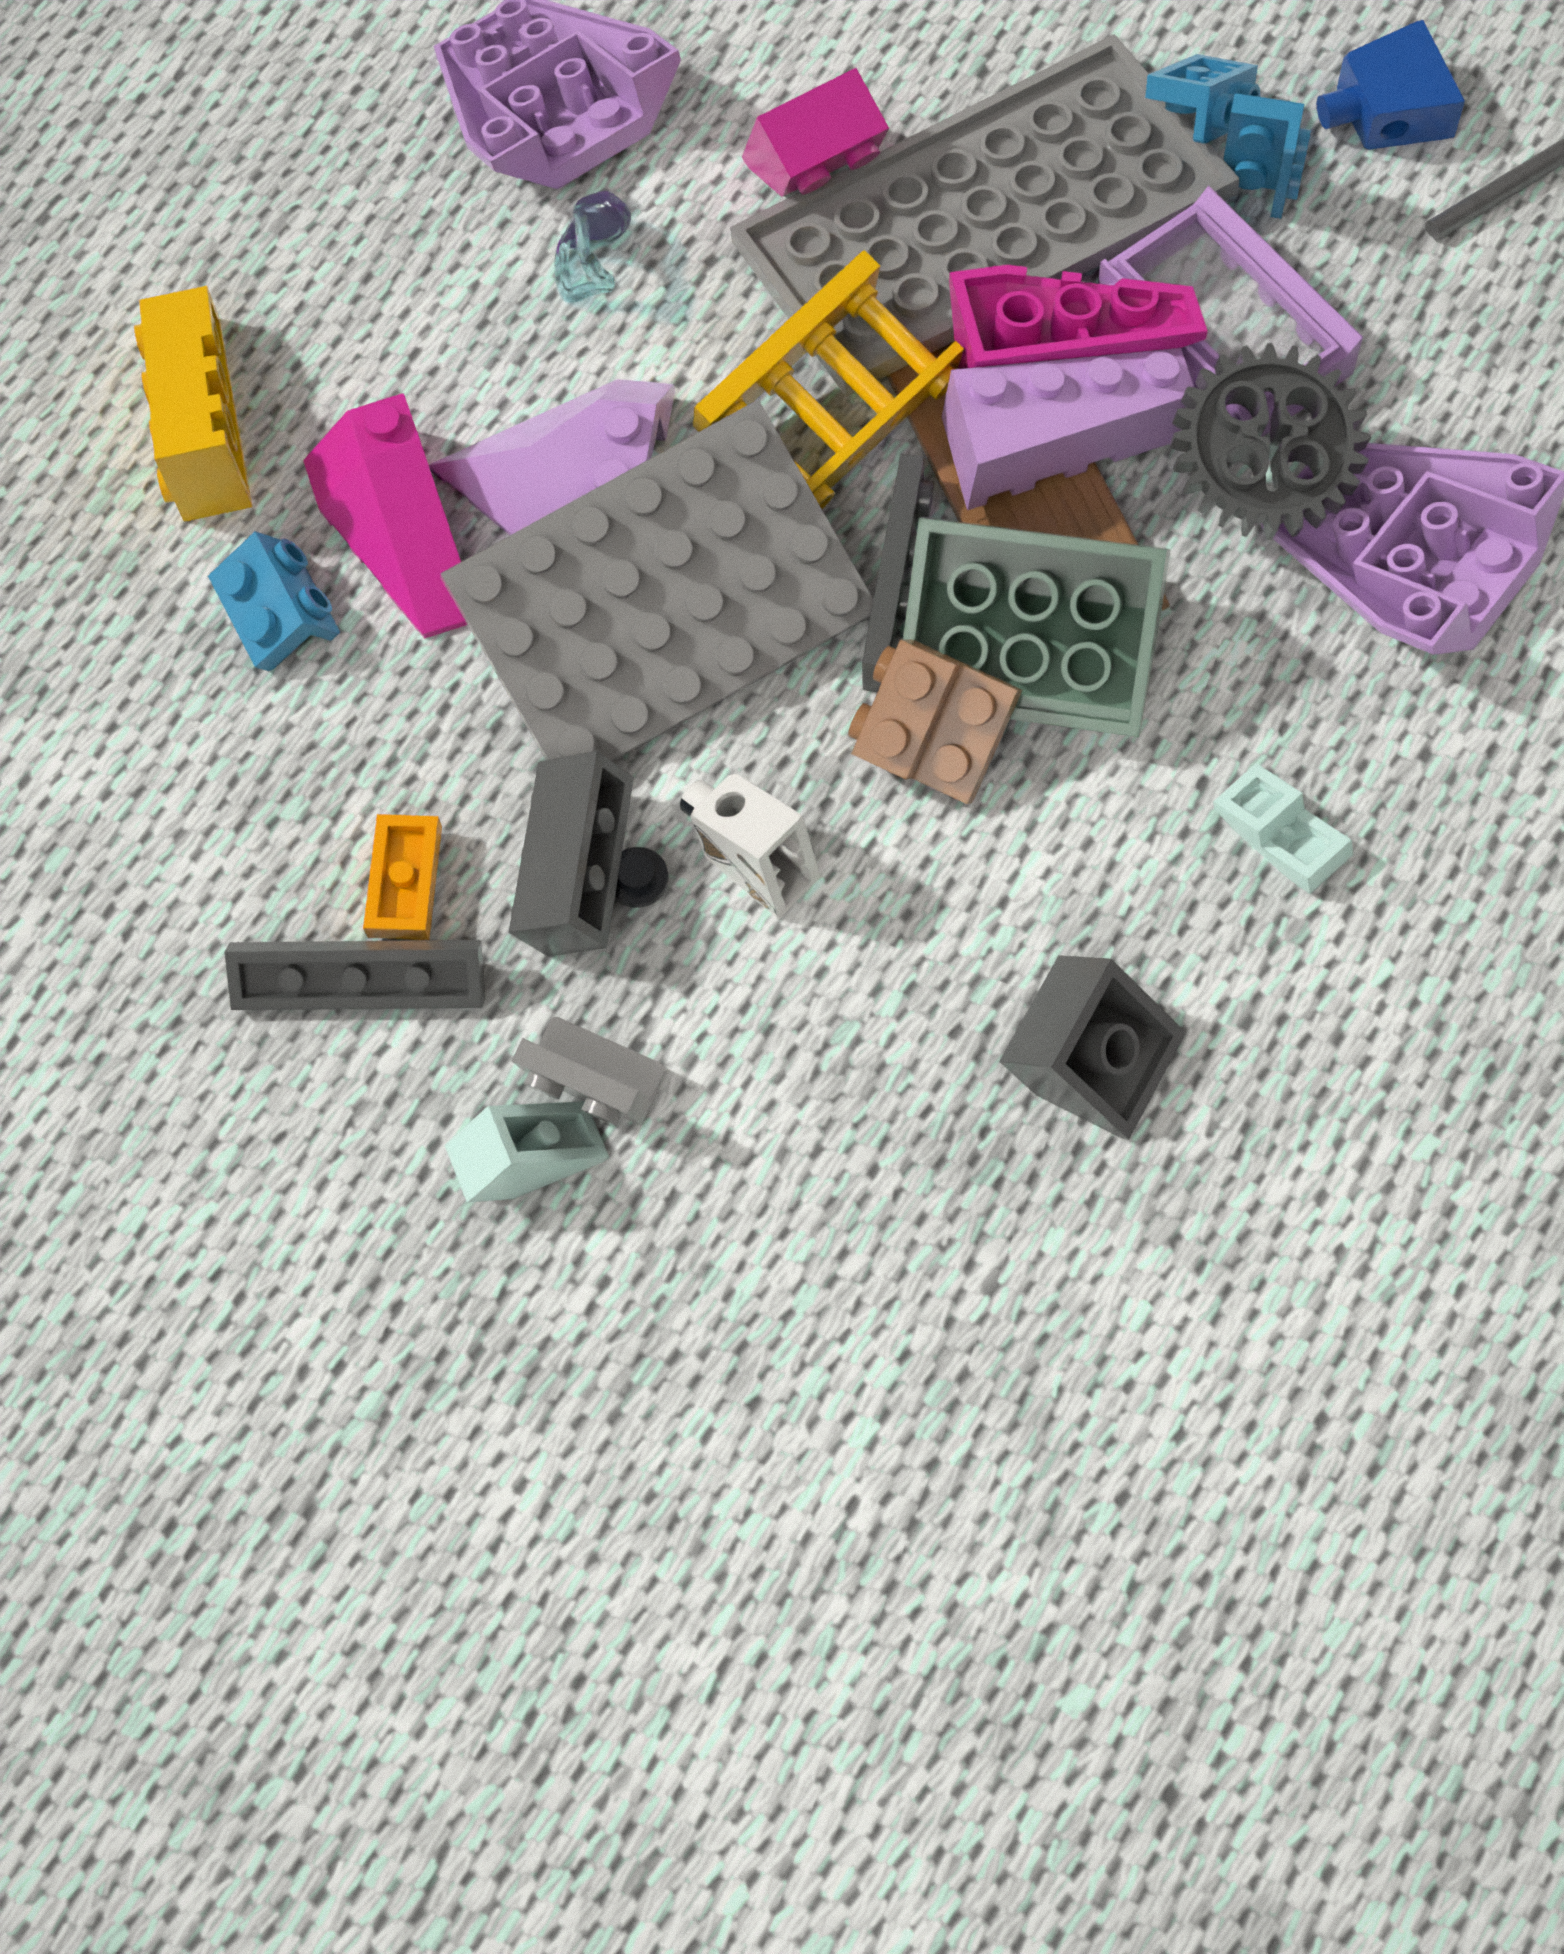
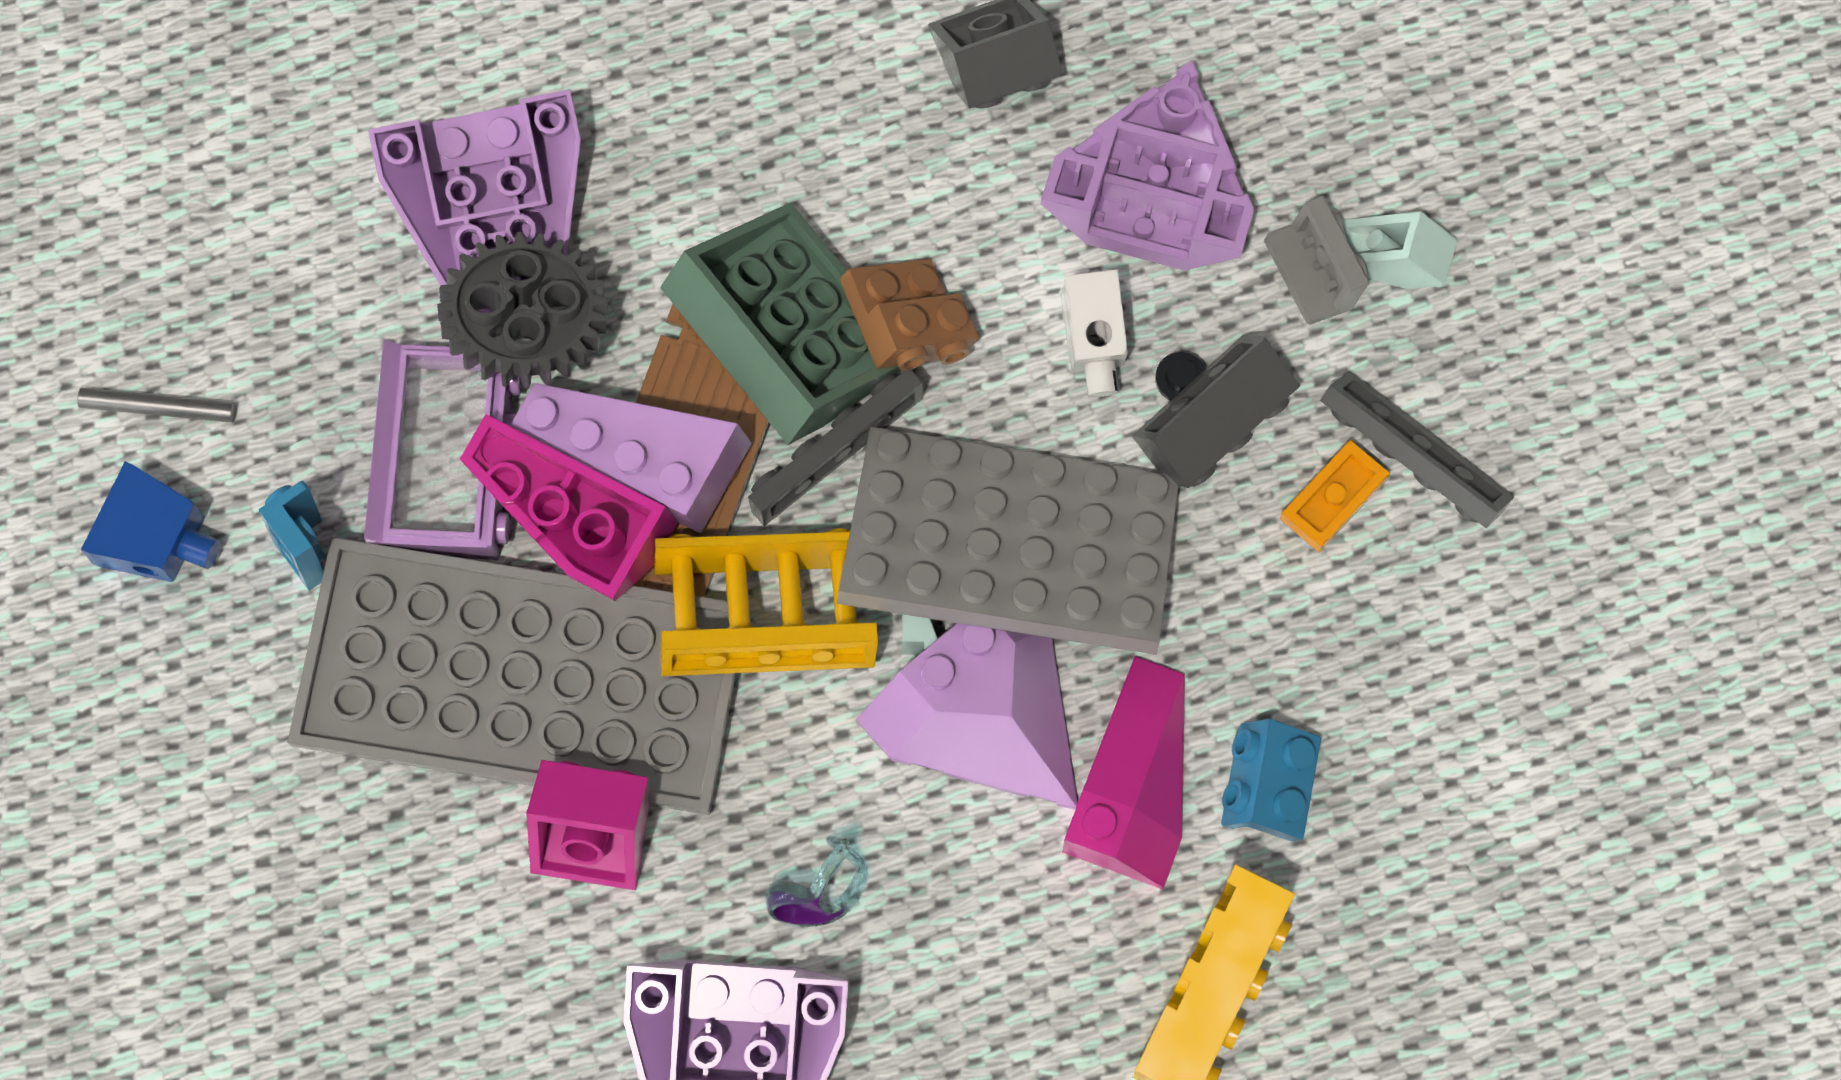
camera: 145 degrees left, 5 degrees up
(815, 1023) = (1155, 181): none -> lavender wedge
(1203, 87) = (283, 625): dark azure bracket -> none
(1278, 826) = (751, 92): light aqua slope -> none

